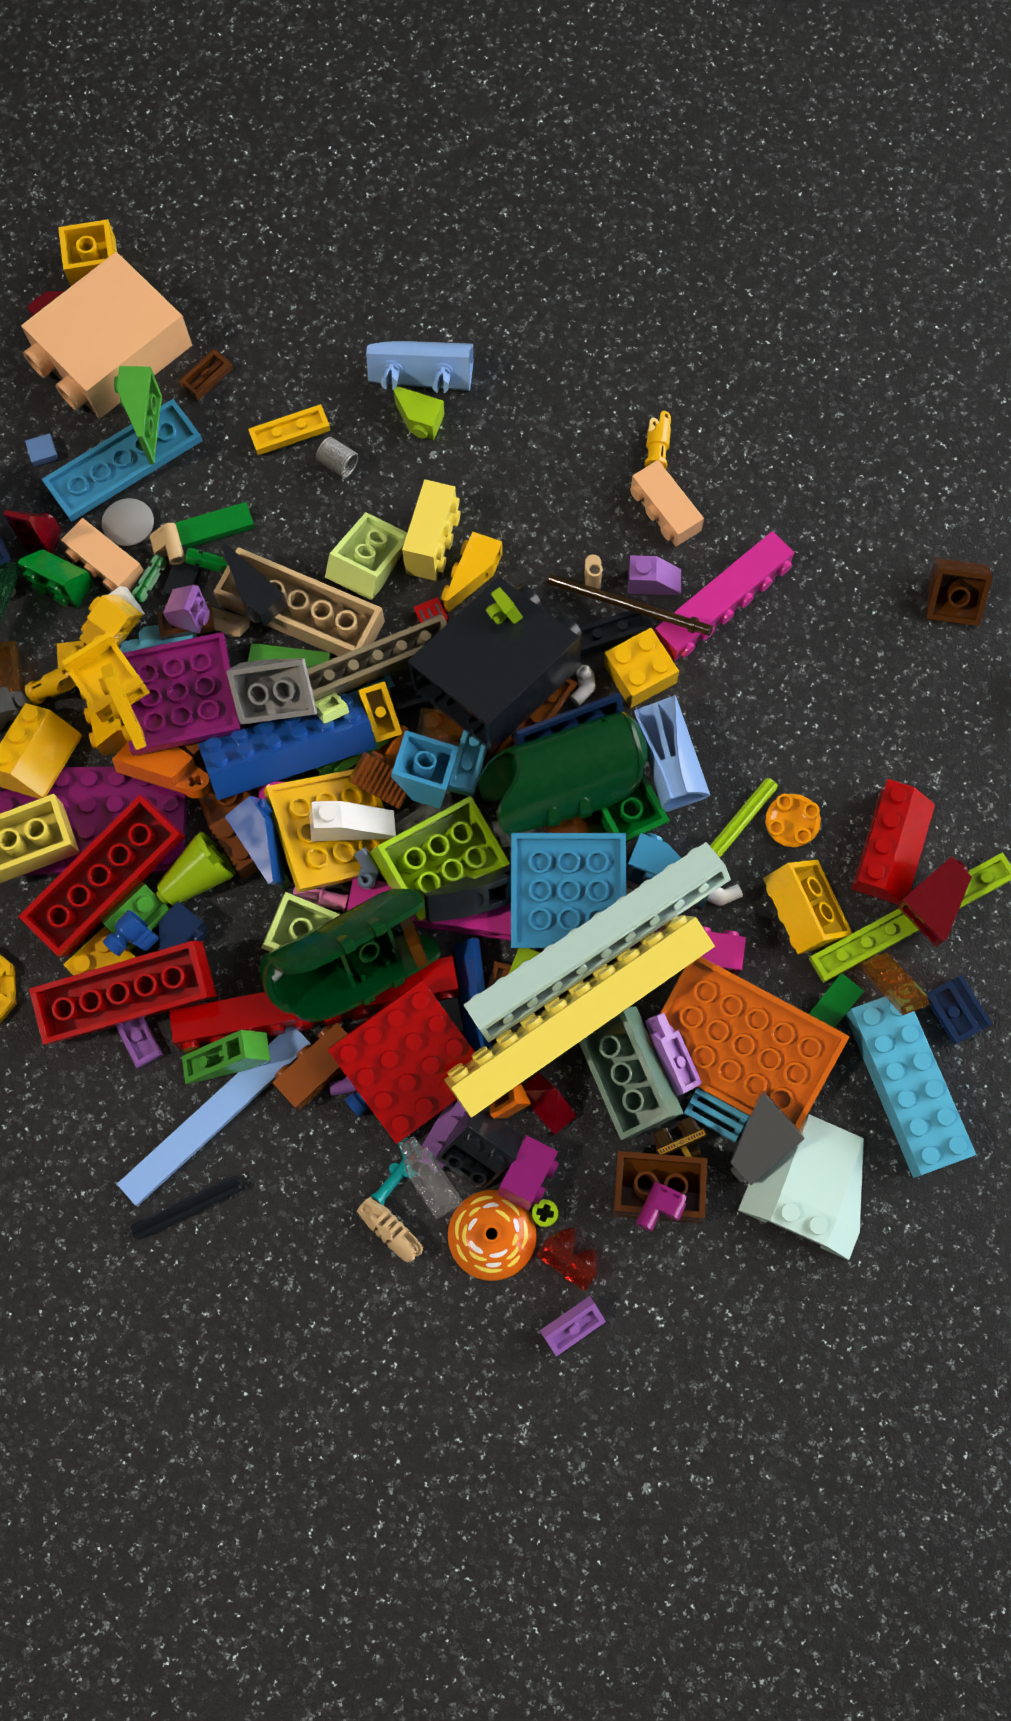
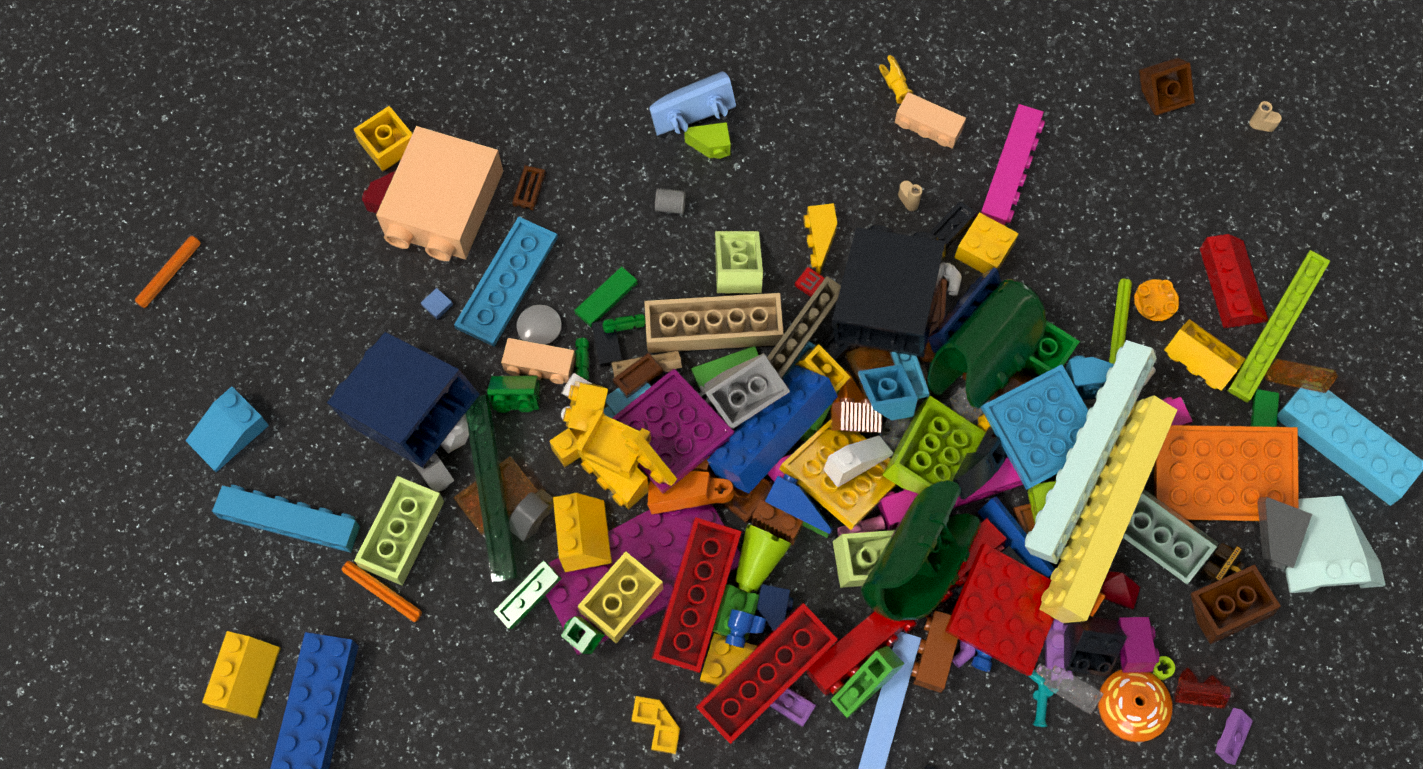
camera: 30 degrees left, 5 degrees down
(34, 530) = (477, 366): dark red slope -> none
(51, 685) = (563, 473): yellow piece -> none
(142, 402) = (504, 234): bright green slope -> none
(166, 542) = (580, 323): tan piece -> none
(187, 609) = (641, 362): medium lavender slope -> none
(259, 596) = (682, 326): black slope -> none
(289, 429) = (620, 198): yellow plate -> none
(331, 708) = (795, 381): yellowish green tile -> none
(368, 870) = (889, 487): sand blue arm -> none
(390, 1229) = (1063, 740): tan hinge -> none
(414, 942) = (962, 522): reddish brown tile -> none
(431, 530) = (777, 220): light yellow brick -> none
(503, 608) = (880, 246): lime tile -> none
(653, 576) = (952, 177): medium lavender slope -> none
(661, 1201) = (1246, 610): magenta piece -> none
(671, 755) = (1062, 303): light blue piece -> none
(673, 1055) = (1184, 504): medium lavender hinge -> none
(691, 624) = (950, 204): dark brown bar -> none
(723, 1106) = (1236, 525): medium azure tile -> none
(937, 900) = (1292, 304): dark red slope -> none
(958, 1010) = (1352, 373): dark blue plate -> none

